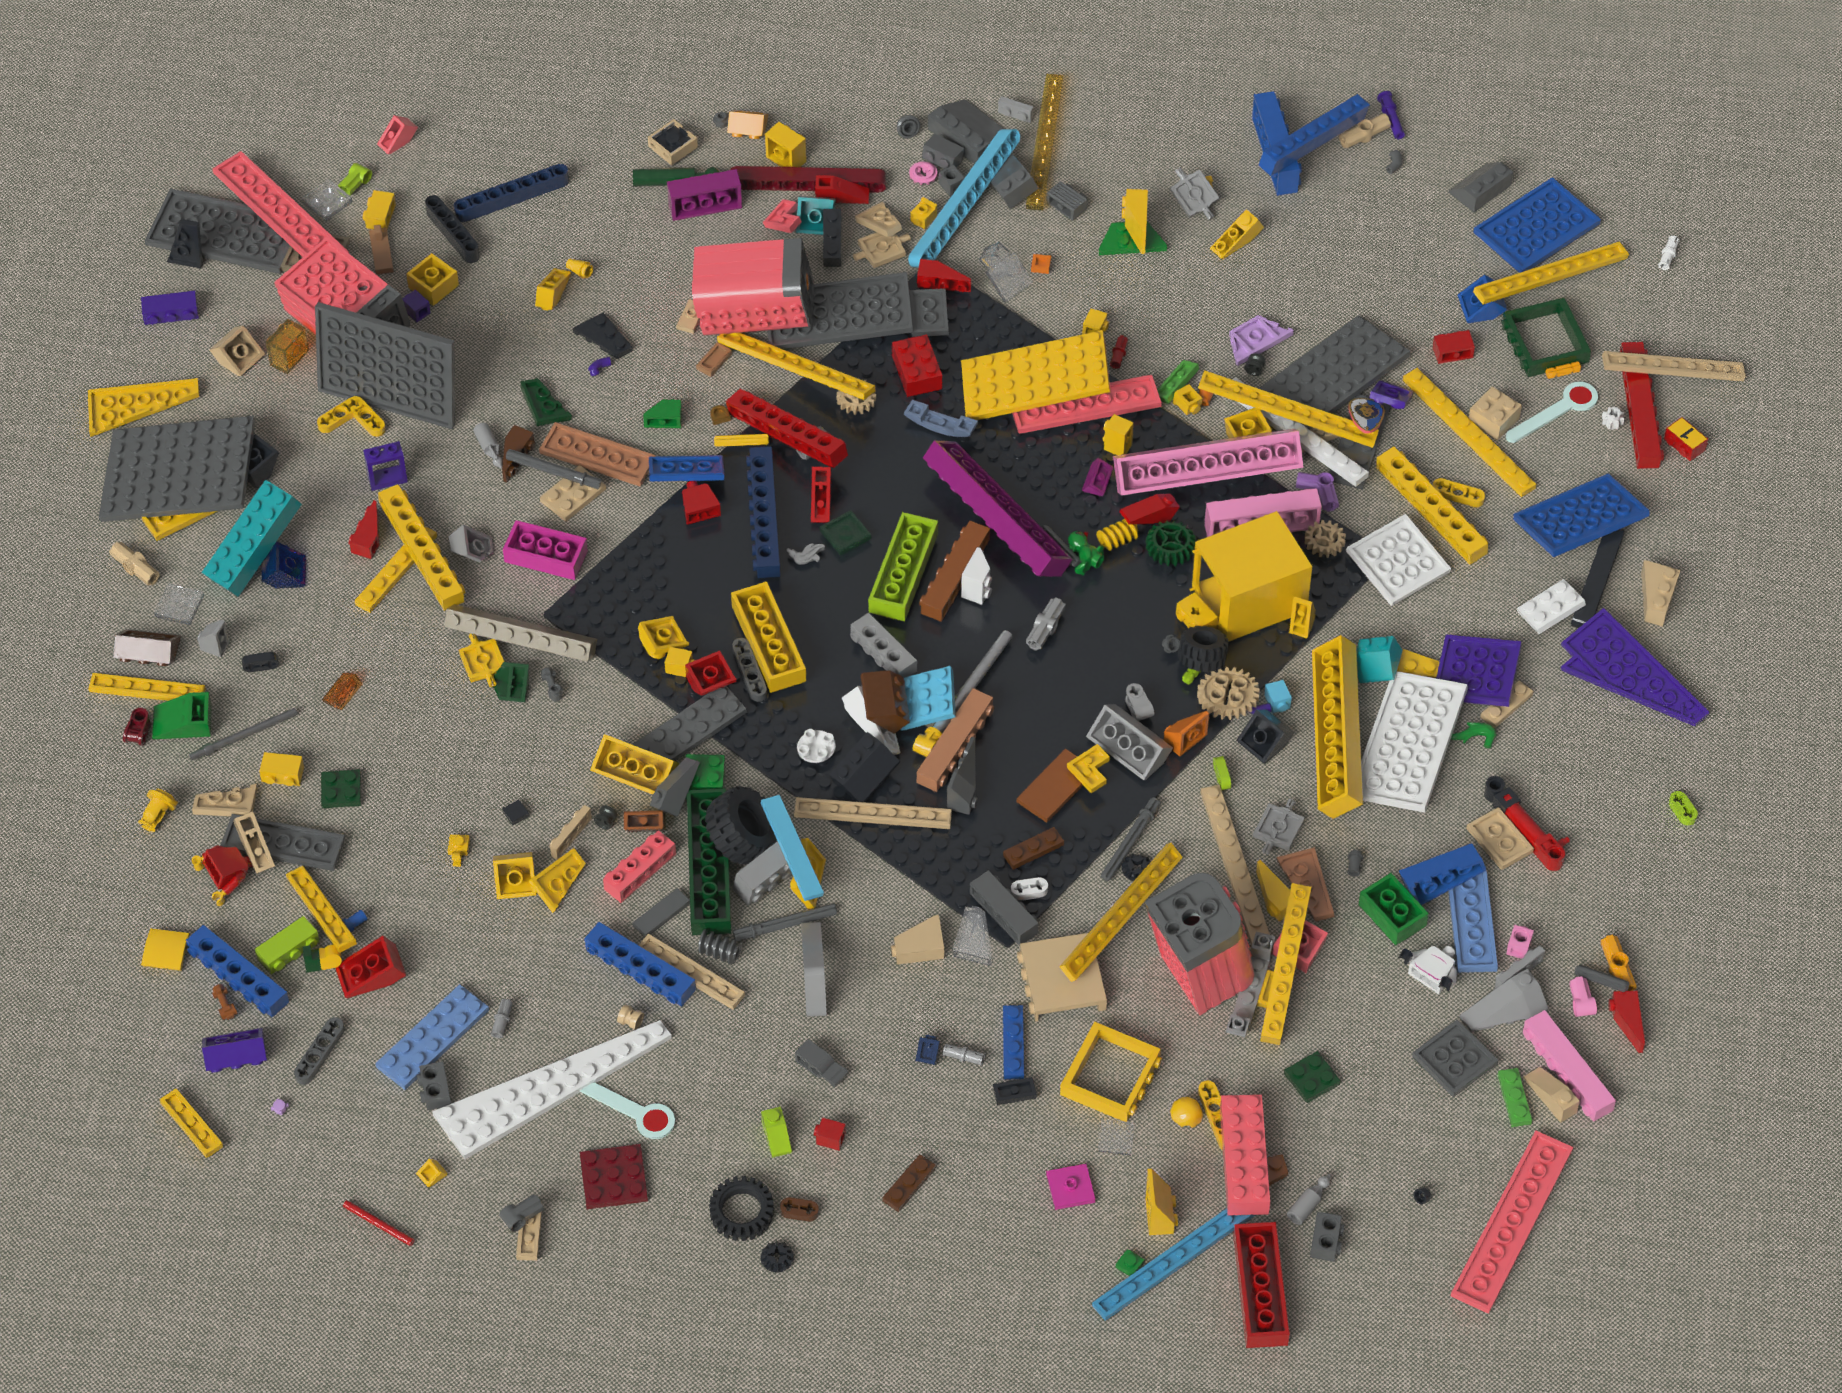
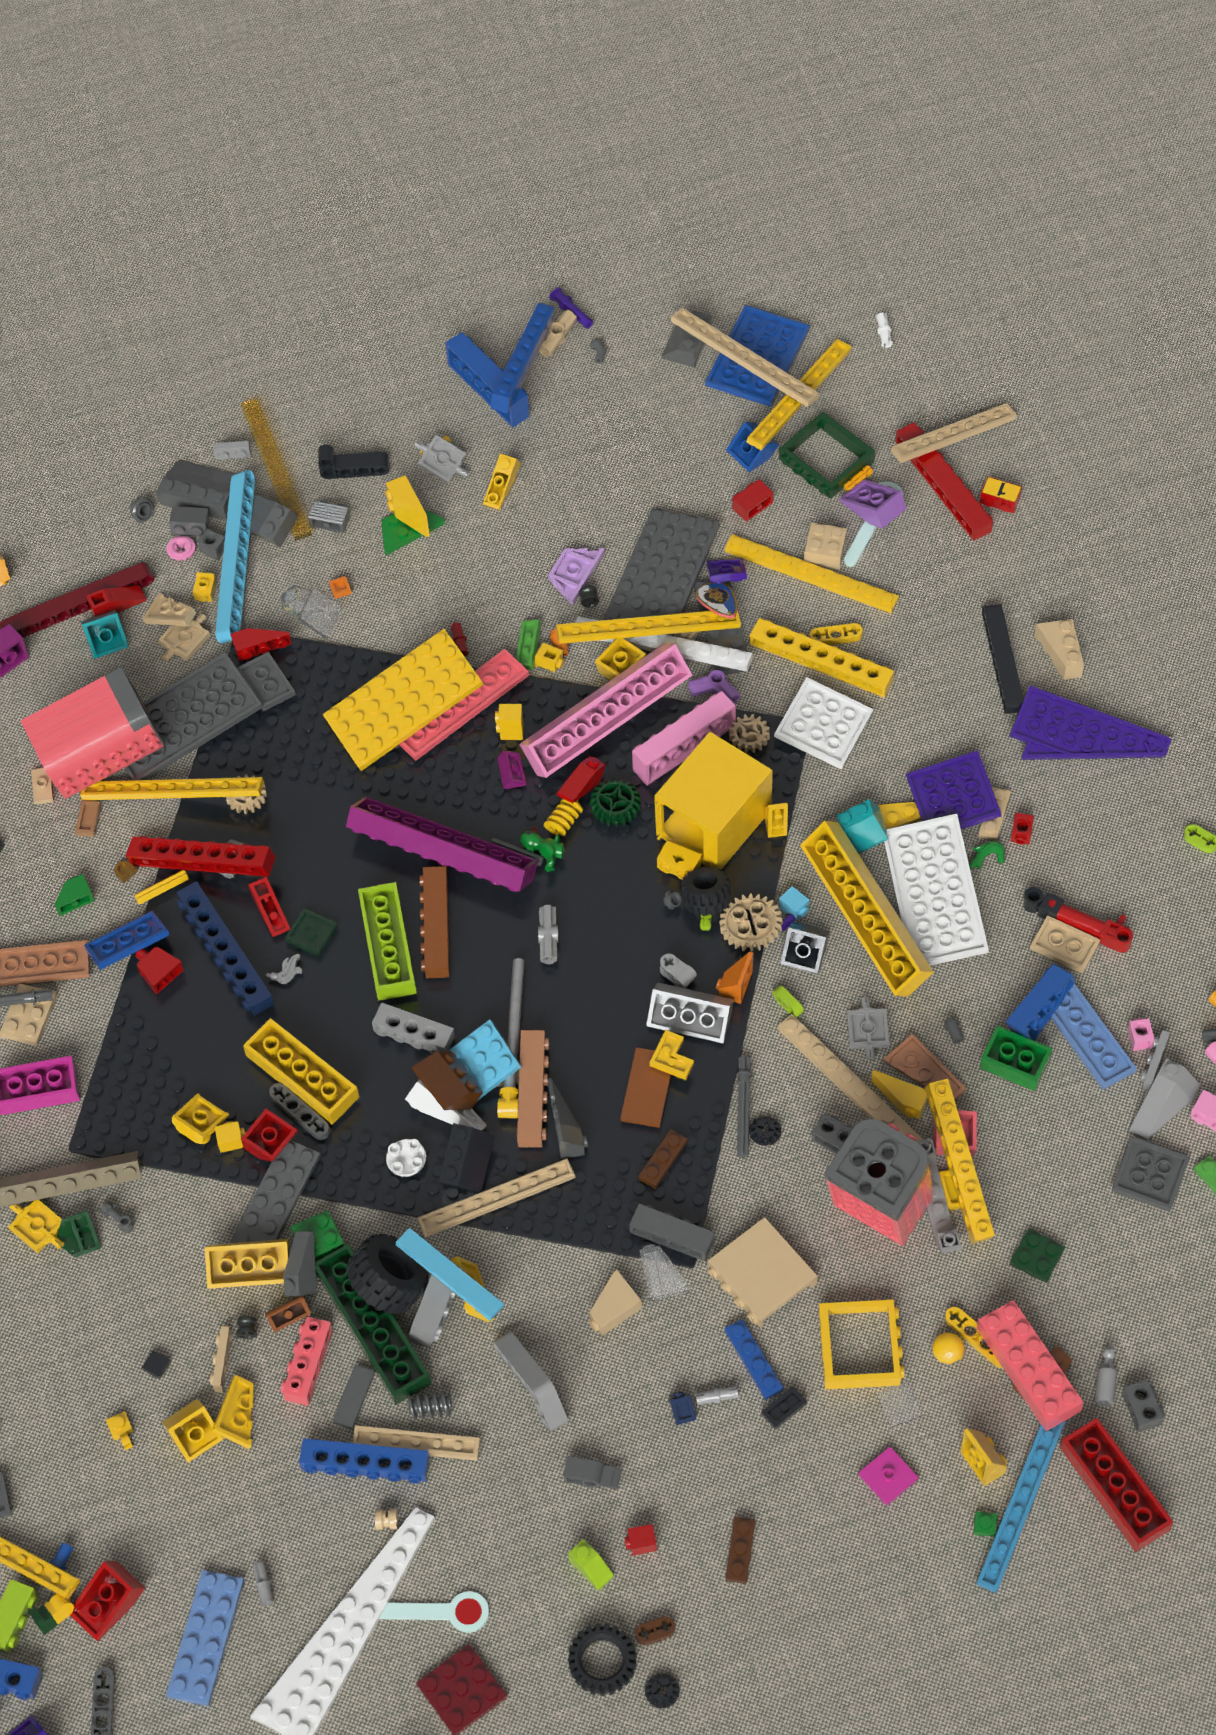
camera: 25 degrees left, 5 degrees up
(433, 1086) = (241, 1686): dark grey brick -> none
(782, 217) = (75, 652): coral plate -> none
(784, 922) = (475, 1348): dark grey axle -> none
(785, 146) = (40, 580): yellow brick -> none
(832, 237) = (134, 649): black brick -> none
(917, 365) = (285, 738): red brick -> none
(939, 422) = (337, 783): sand blue slope -> none
(976, 578) = (463, 920): white slope -> none
(1029, 888) = (679, 1198): white beam -> none
(1095, 321) = (423, 623): yellow brick -> none
(1112, 165) = (351, 465): none -> black beam
(1120, 912) = (781, 1184): yellow plate -> none
(1418, 1197) = (1203, 1324): black hinge -> none
(1432, 967) = (1082, 1097): white torso -> none
(1518, 219) = (745, 357): none -> tan plate
(1525, 720) = (1025, 822): none -> red brick
(1551, 606) = (981, 704): white plate -> none
(1563, 396) = (874, 502): none -> medium lavender slope
(1581, 515) = (956, 607): blue plate -> none
(1613, 418) = (928, 504): white gear -> none

